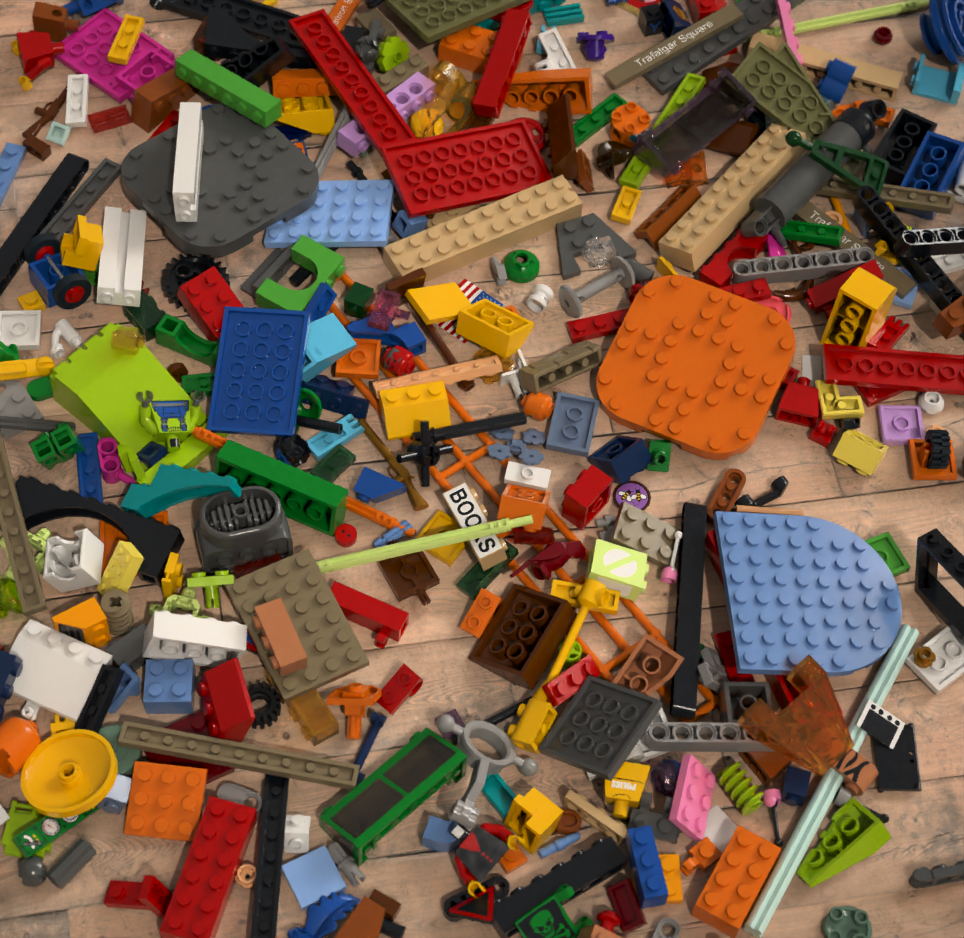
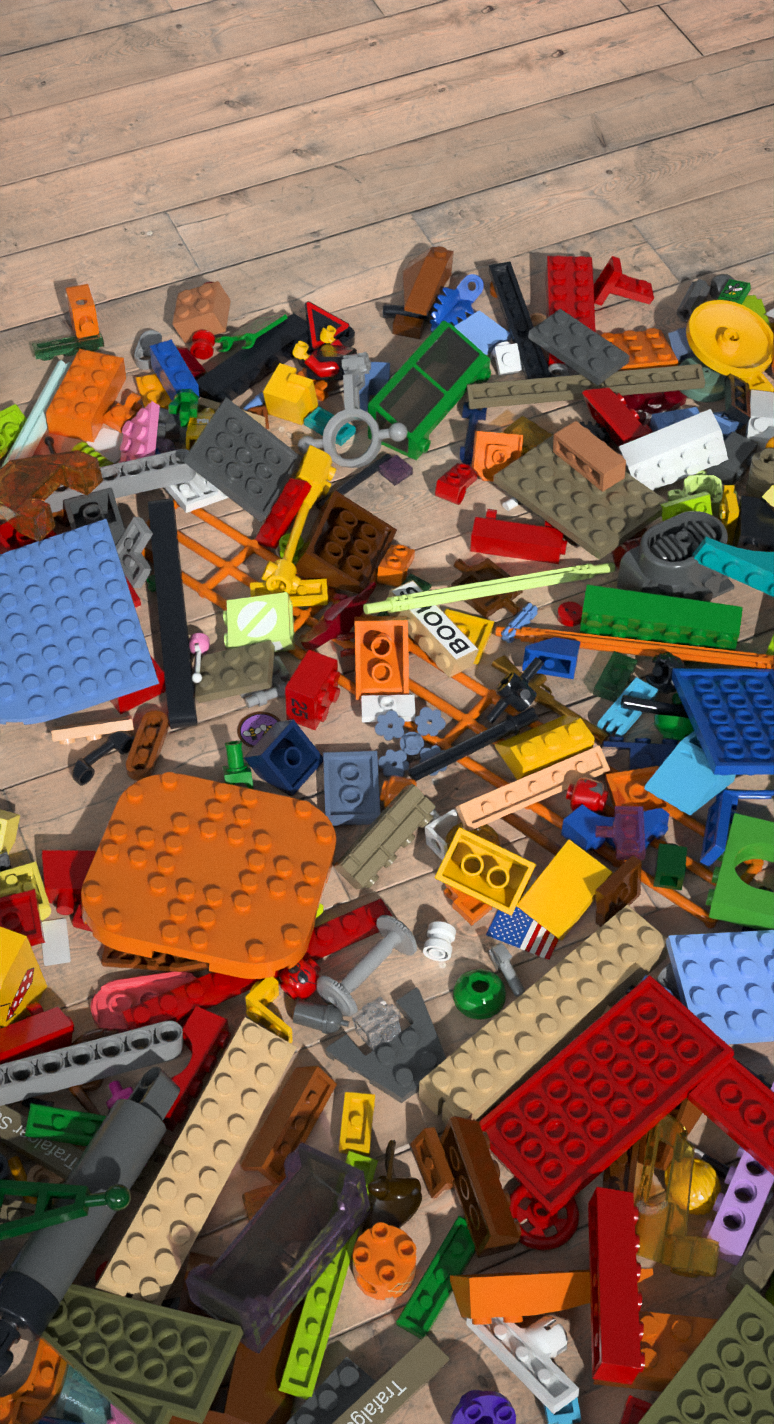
camera: 170 degrees right, 5 degrees down
(230, 792) = (579, 347): none -> dark grey plate
(640, 810) = (186, 403): none -> green rock
(648, 666) = (209, 532): nougat wedge -> none
(823, 433) = (30, 852): red tile -> none

